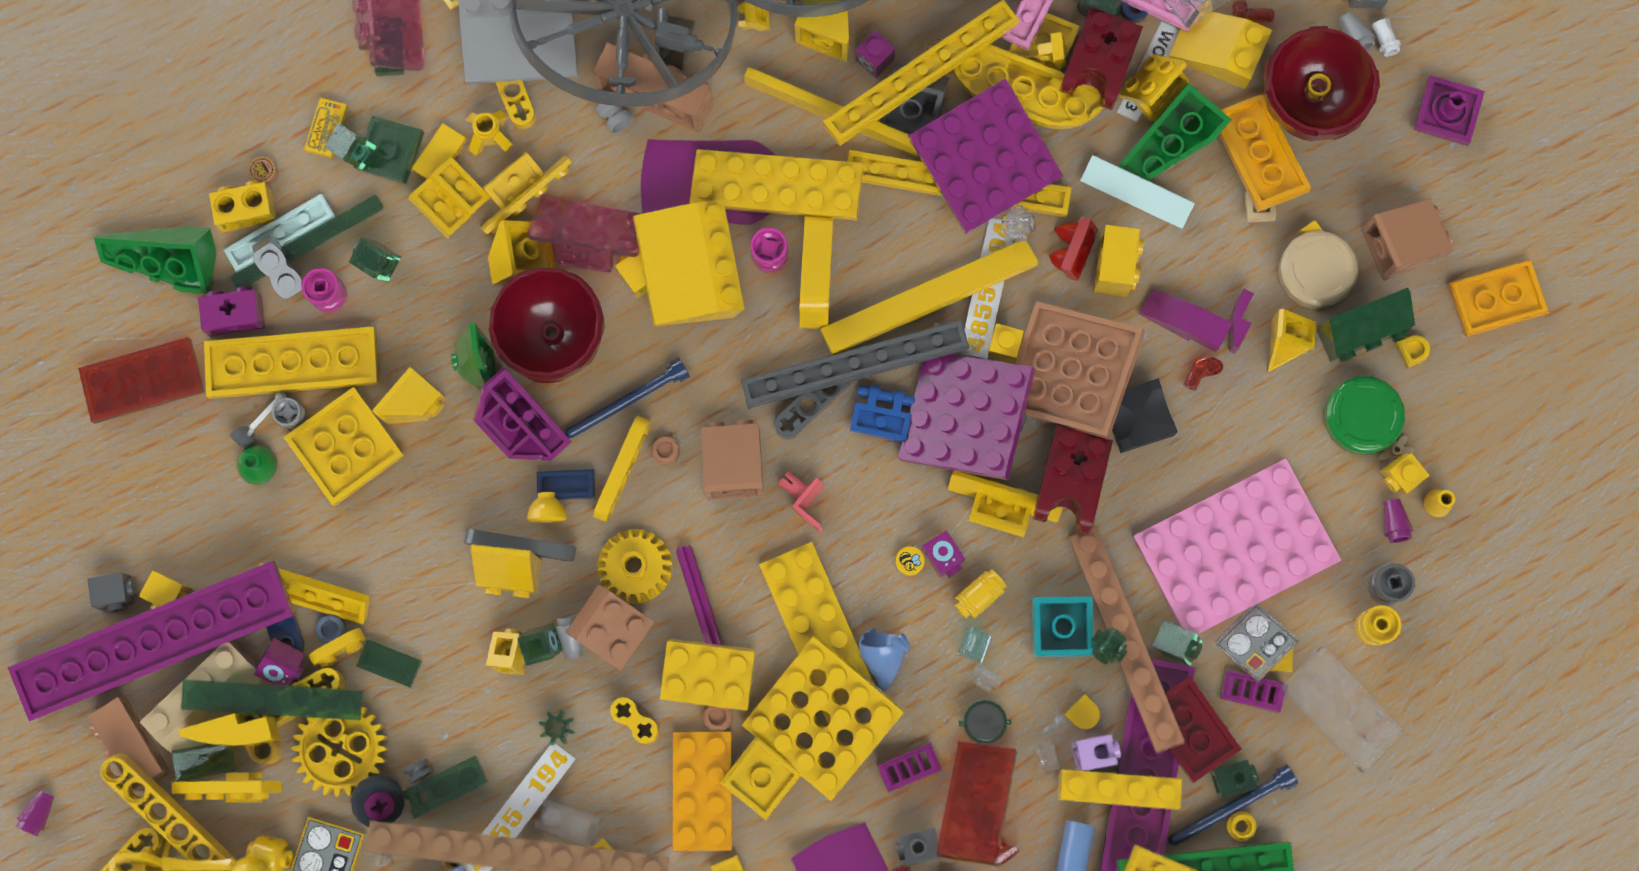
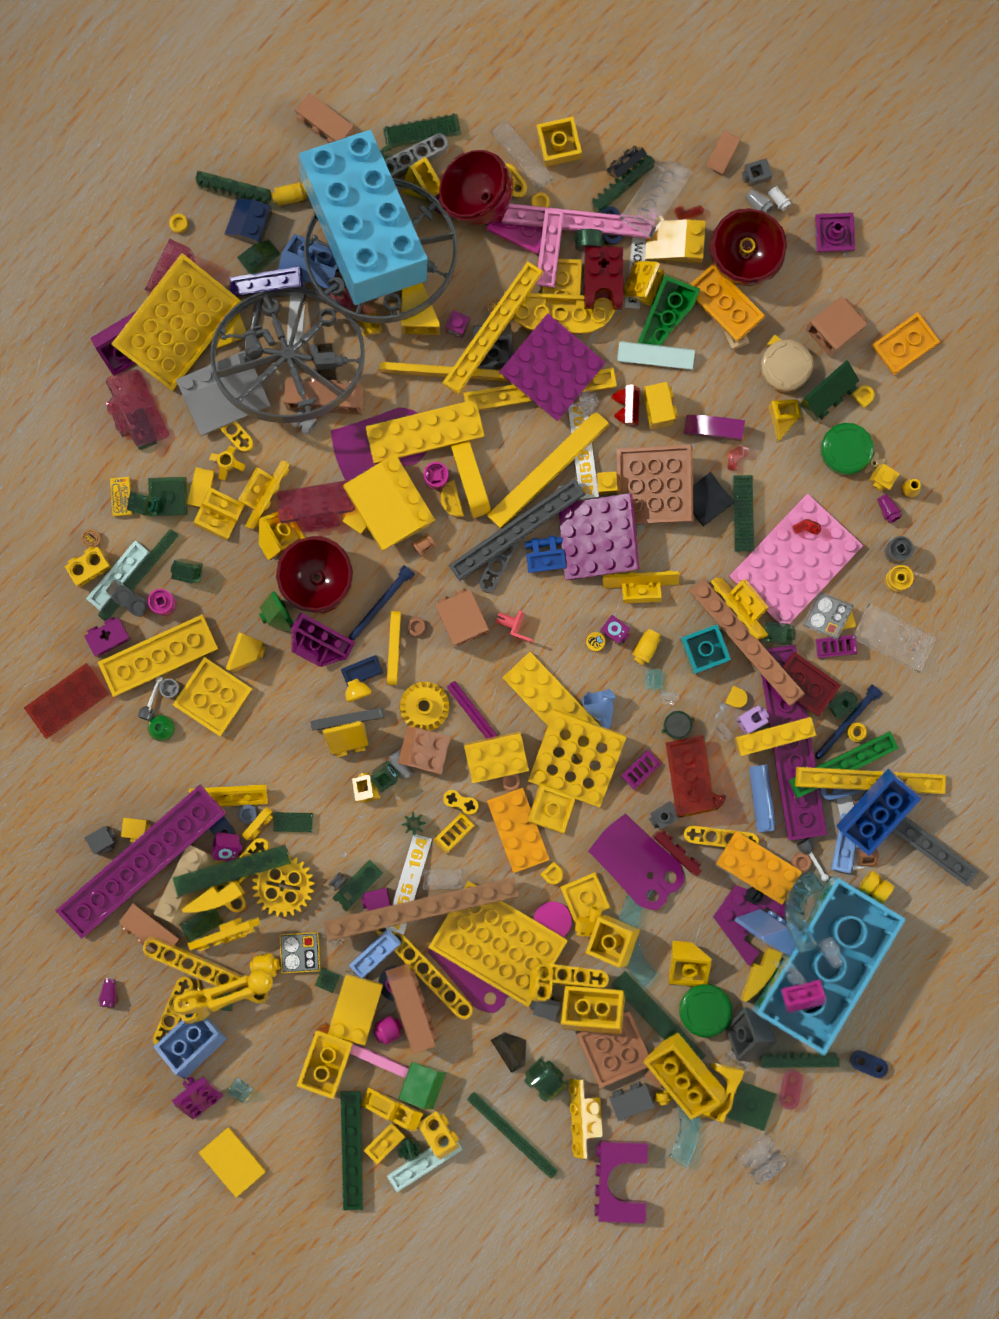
camera: 20 degrees left, 5 degrees up
(169, 254) = (55, 614): green wedge -> none
(374, 791) = (313, 905): black wheel -> none
(463, 817) = (376, 899): none -> magenta brick
(603, 776) = (446, 849): none -> yellow slope
(717, 339) = (423, 544): none -> nougat bush
(778, 291) = (451, 501): none -> yellow plate
(1054, 51) = (571, 283): yellow tile -> none
(1073, 476) = (679, 558): dark red brick -> none
(1109, 646) = (738, 651): clear green gear -> none
(1143, 583) = (745, 603): none -> yellow bracket
(1184, 454) = (743, 513): none -> clear green gear
(1239, 326) = (750, 420): magenta slope -> none
(1271, 503) = (807, 525): none -> clear red arm

